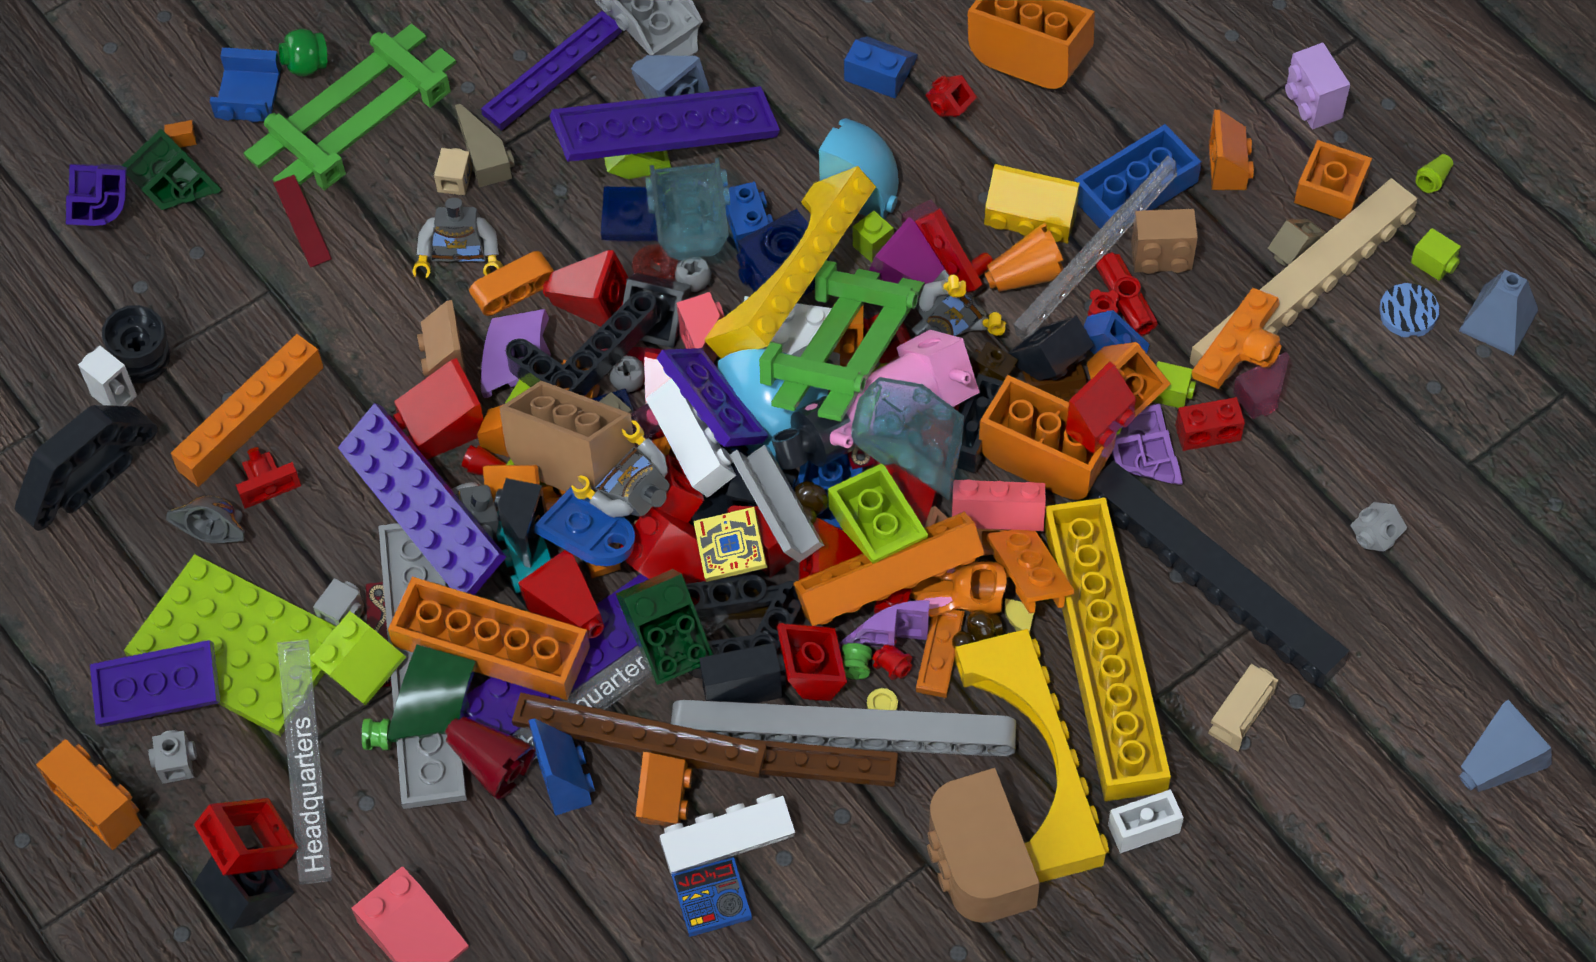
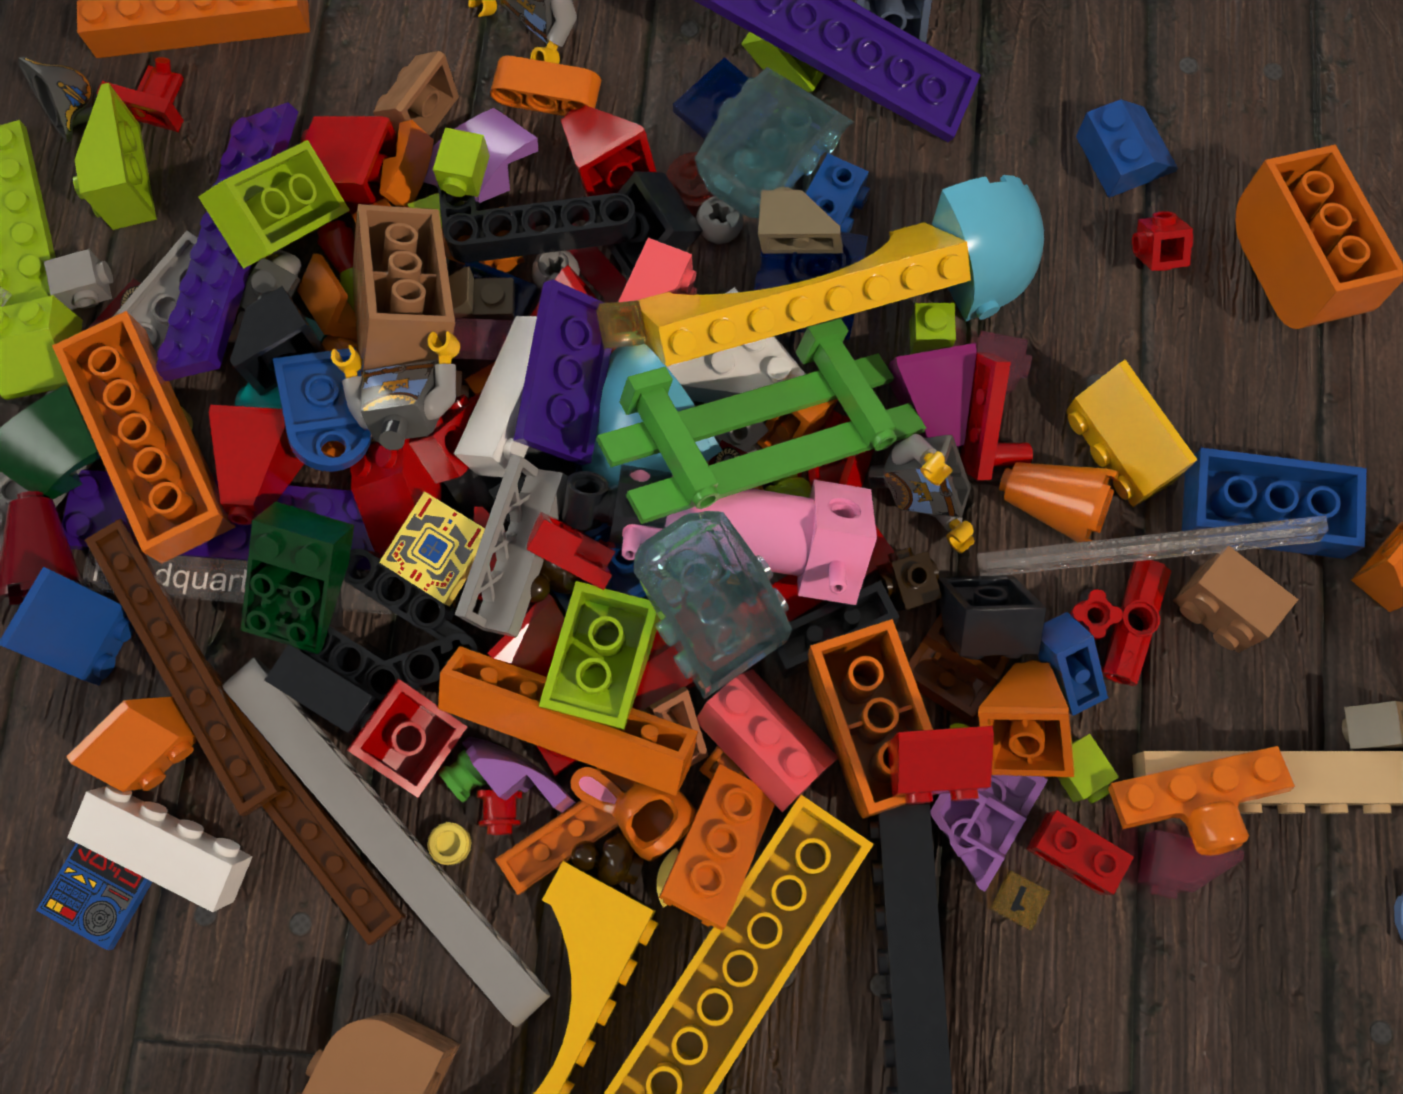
camera: 45 degrees right, 15 degrees up
(306, 525) = (114, 164): none -> lime slope
(442, 451) = (273, 203): none -> lime brick
(484, 383) = (406, 171): none -> orange slope
(533, 343) = (461, 162): none -> lime brick
(716, 350) = (621, 324): none -> clear yellow plate
(756, 228) = (795, 224): none -> dark tan slope
(808, 472) = (571, 550): none -> red slope
(1204, 474) = (1020, 900): none -> clear yellow tile

